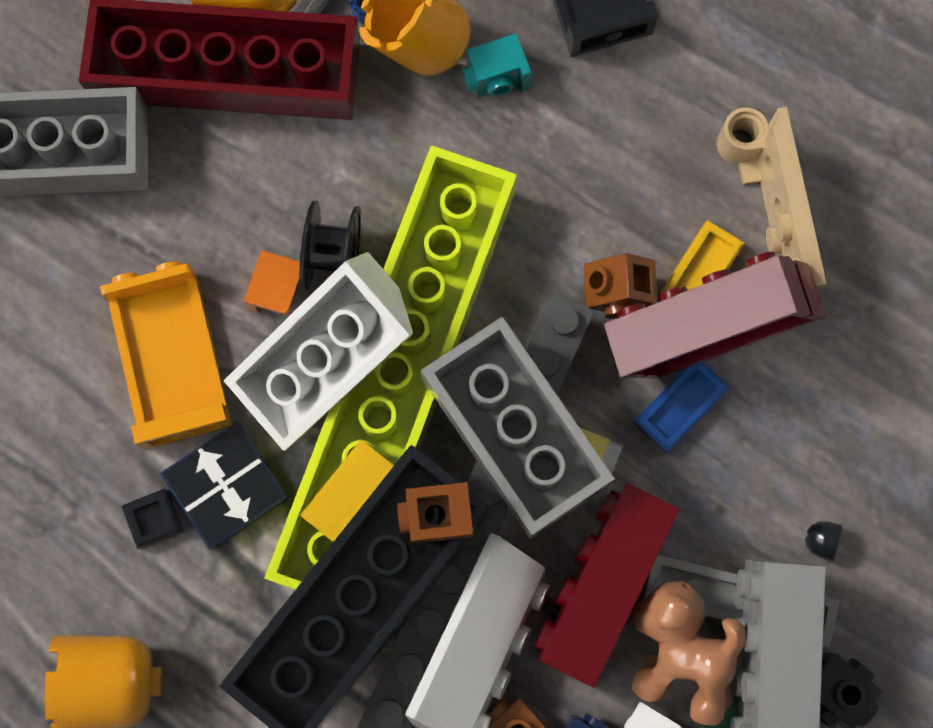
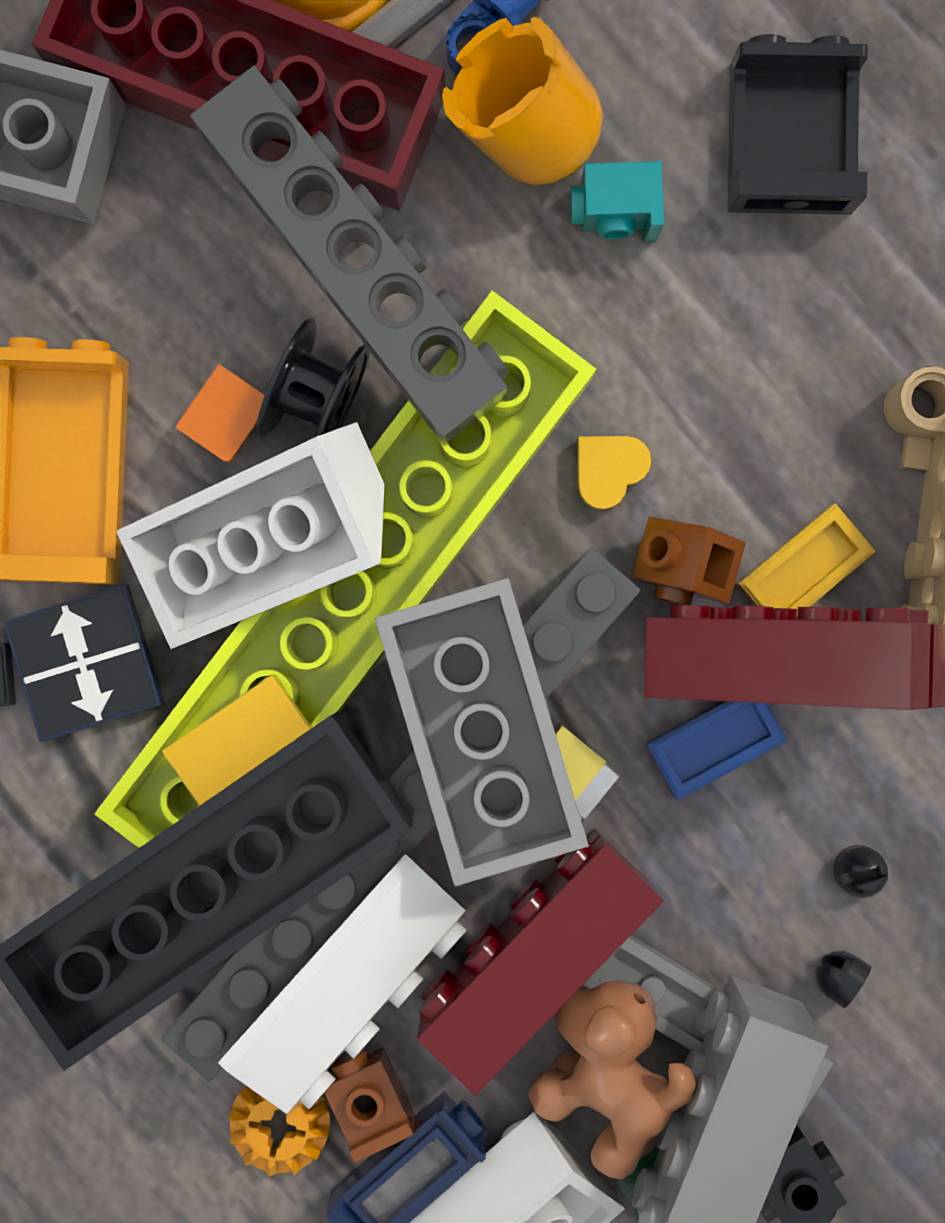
camera: 10 degrees right, 10 degrees up
(244, 74) = (235, 128): none -> dark grey brick
(449, 497) = (350, 852): dark orange brick -> none
(546, 243) = (608, 467): none -> yellow tile
(806, 454) = (858, 859): none -> black hinge

